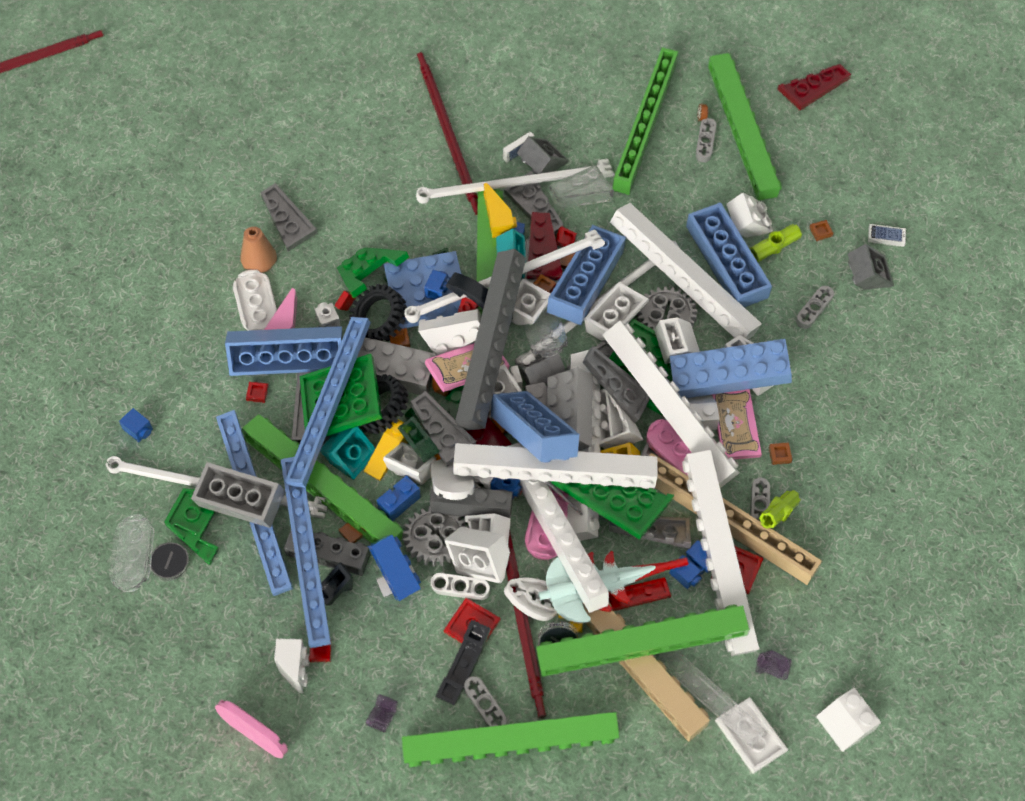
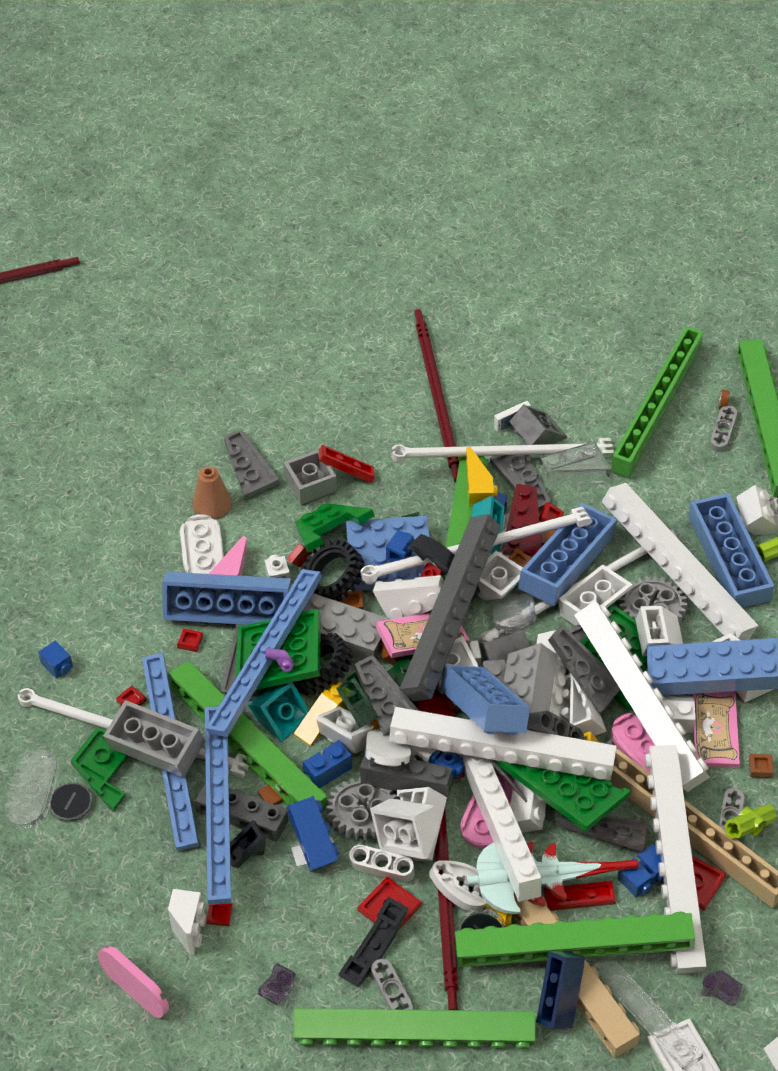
camera: 10 degrees right, 10 degrees down
(211, 454) = (131, 695): none -> red tile
(345, 223) = (309, 477): none -> light grey brick
(345, 405) = (282, 658): none -> medium lavender arm
(376, 208) = (346, 463): none -> red tile
(600, 444) = (552, 724): none -> dark grey beam
(636, 689) = (560, 989): none -> dark blue brick

